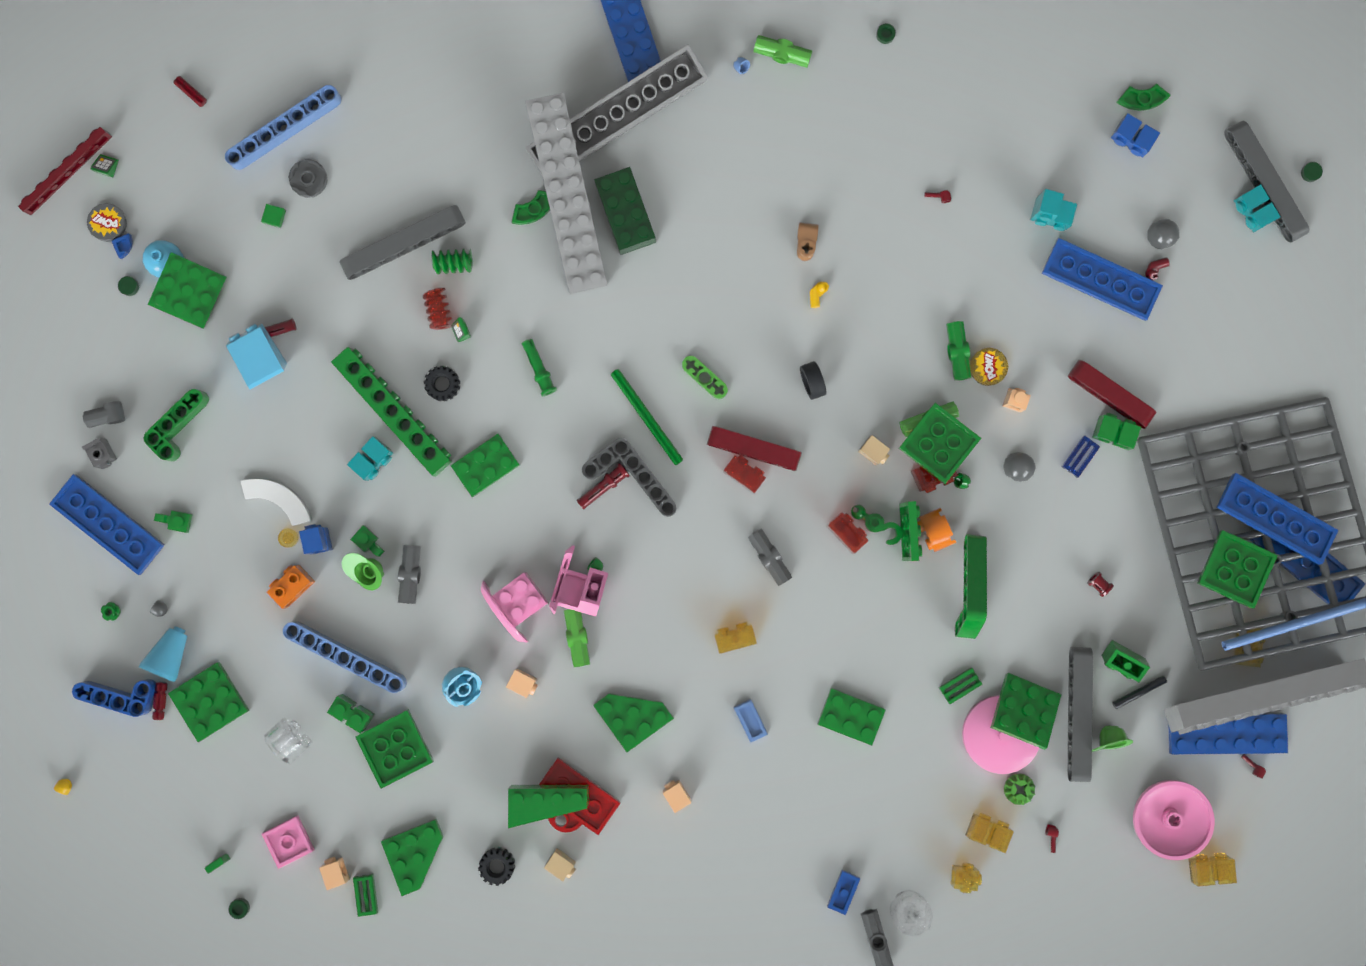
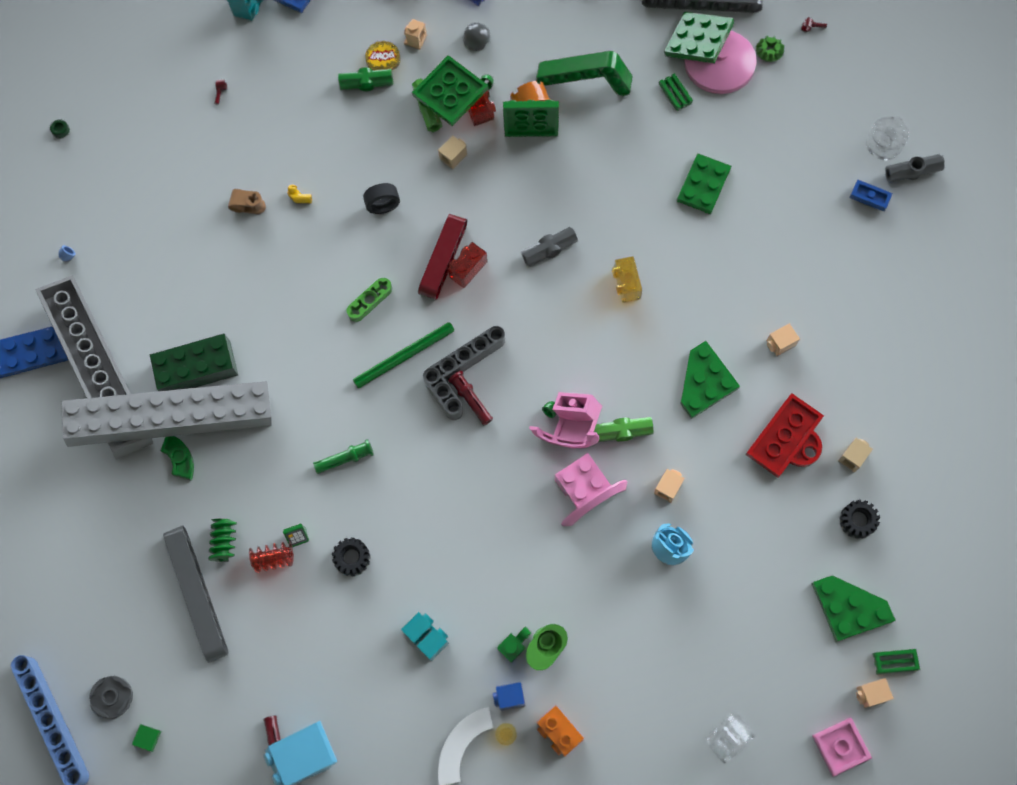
camera: 85 degrees left, 15 degrees down
(335, 656) = (646, 664): medium blue beam -> none
(344, 364) = (321, 662): green brick -> none
(356, 719) = (695, 674): green piece -> none
(394, 749) = (738, 622): green plate -> none
(409, 574) = (551, 599): dark grey piece -> none
(485, 465) = (441, 516): green plate -> none
(542, 802) = (792, 464): green wedge -> none
(750, 720) = (707, 271): medium blue tile -> none
(782, 51) = (59, 215): bright green piece -> none
(847, 533) = (529, 176): clear red brick -> none
(875, 523) = (521, 153): green piece -> none
(965, 878) = (852, 92): clear yellow brick -> none
(988, 832) = (810, 73): clear yellow piece -> none

